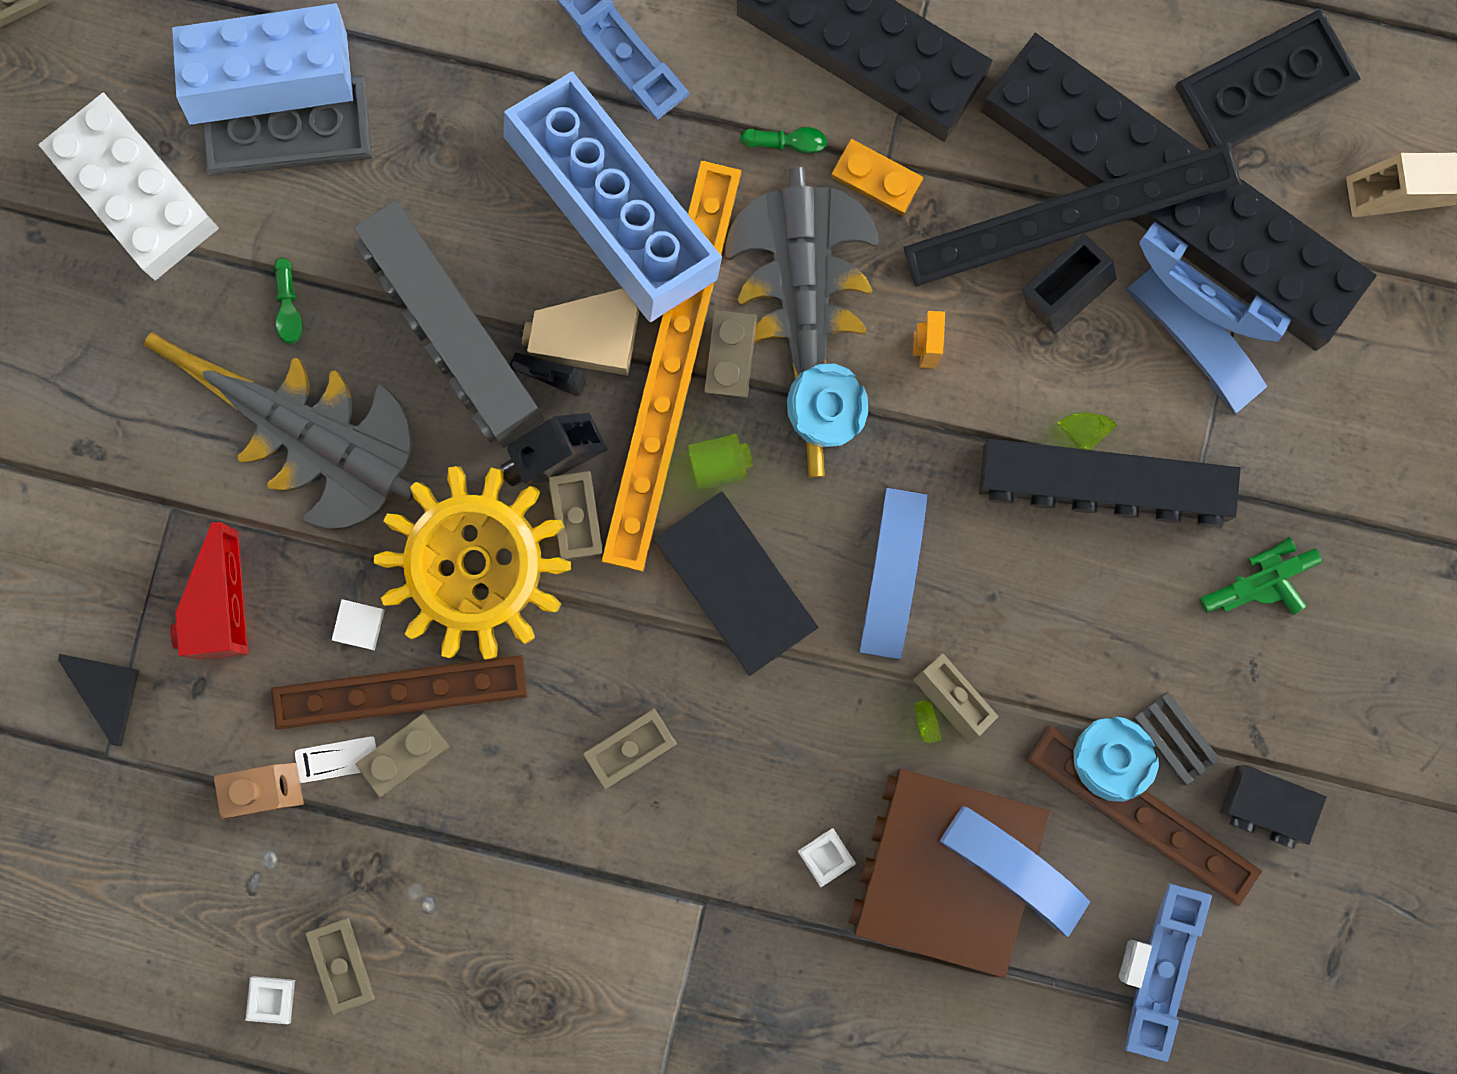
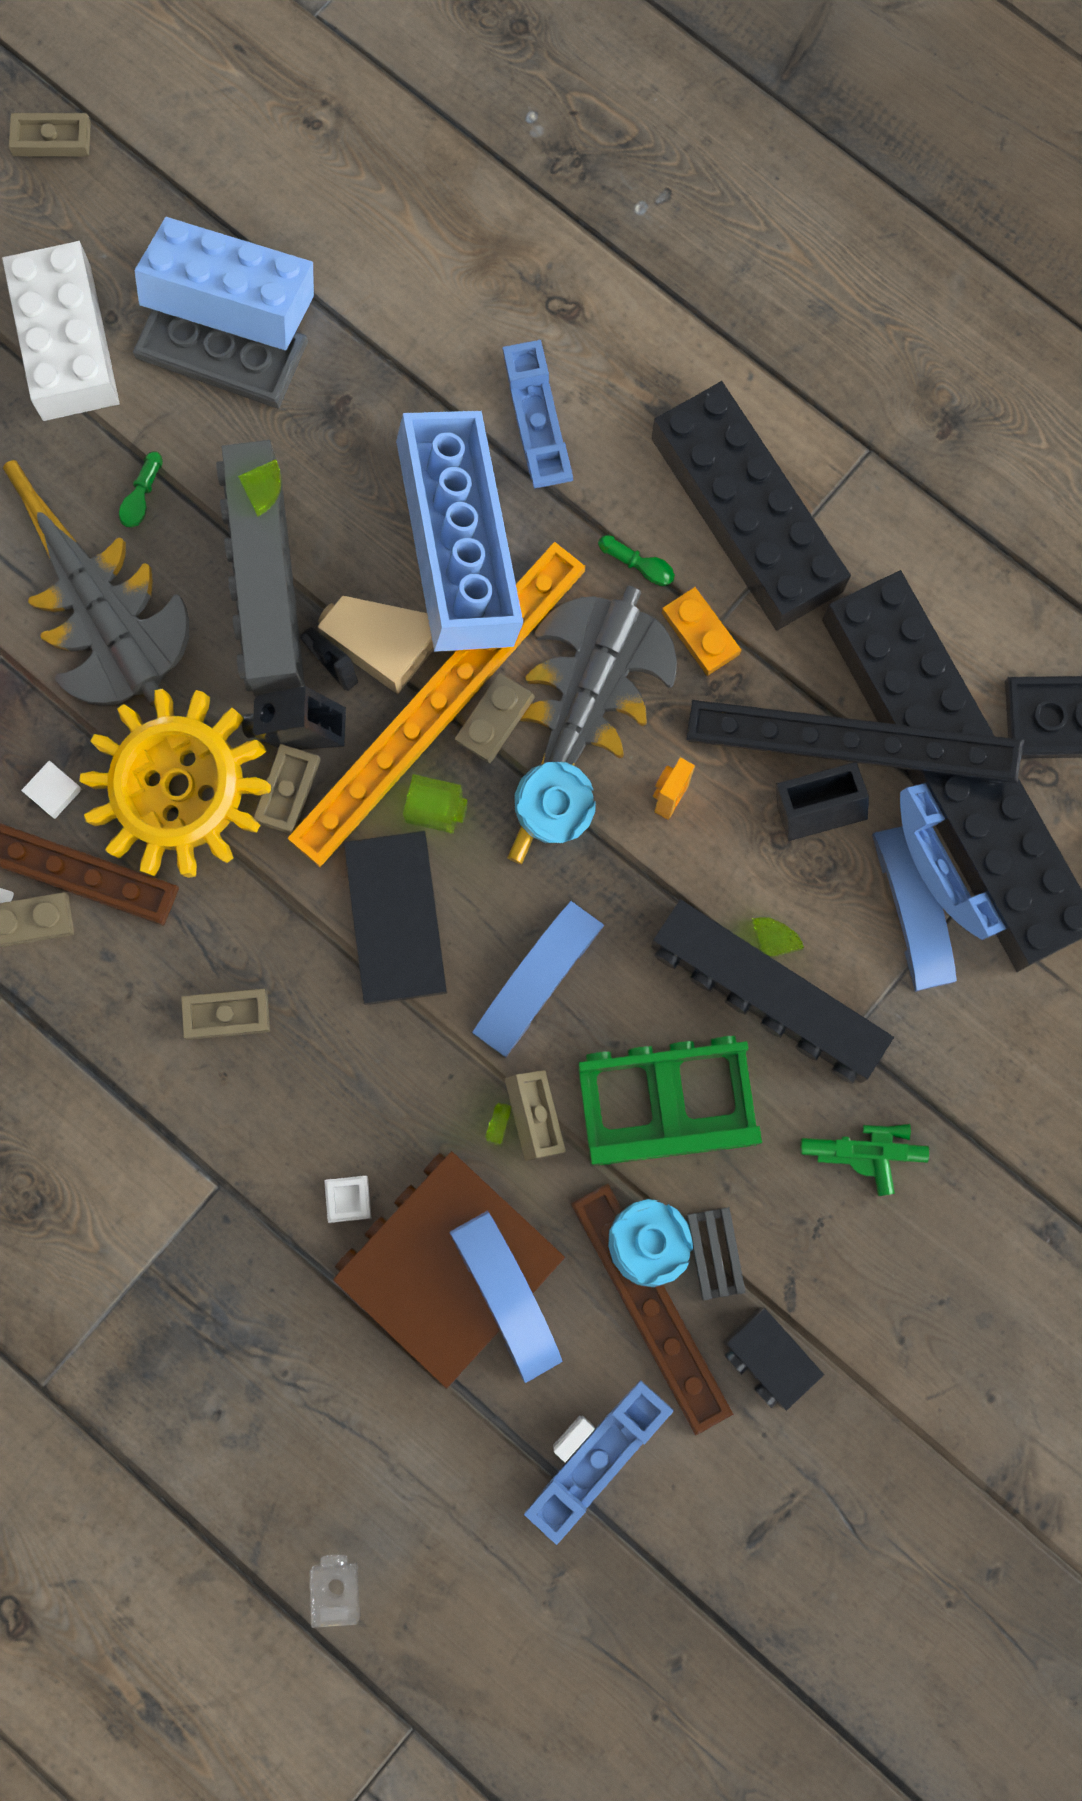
camera: 25 degrees right, 5 degrees down
(413, 248) = (262, 486): none -> clear neon green tile
(1080, 649) = (670, 1129): none -> green window

